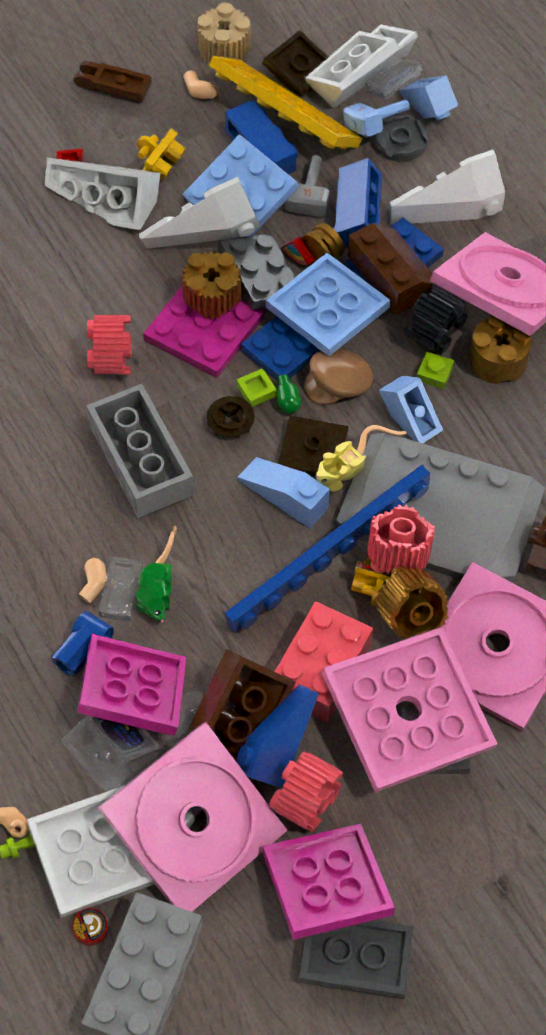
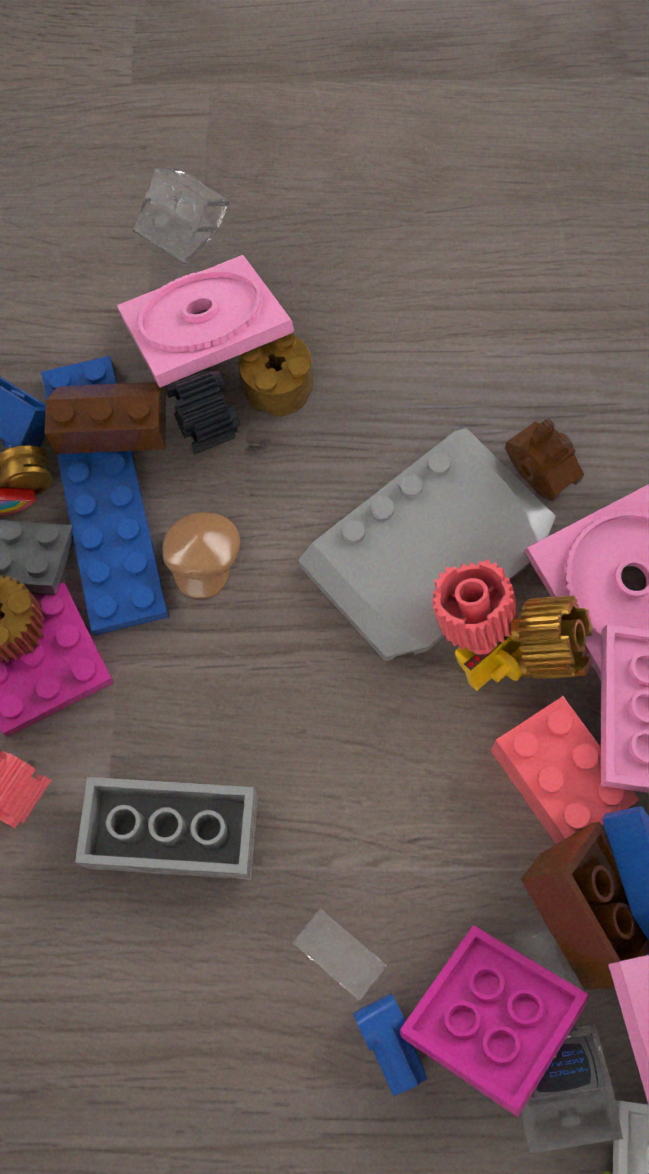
camera: 55 degrees left, 10 degrees up
(96, 578) = (307, 976): light nougat arm -> none
(156, 585) = (357, 909): green animal -> none
(228, 407) = (164, 690): dark brown gear -> none
(256, 387) = (161, 647): lime plate -> none
(287, 395) = (192, 618): green cylinder -> none
(287, 489) = (314, 689): light blue slope -> none
(308, 441) = (275, 630): dark brown plate -> none
(321, 554) = (434, 703): blue plate -> none
(327, 304) = (110, 509): light blue plate -> none
(346, 460) = (327, 604): light yellow animal -> none
(411, 408) = (291, 500): light blue slope -> none
(435, 370) = (254, 450): lime plate -> none
(462, 195) = (60, 302): white wedge -> none

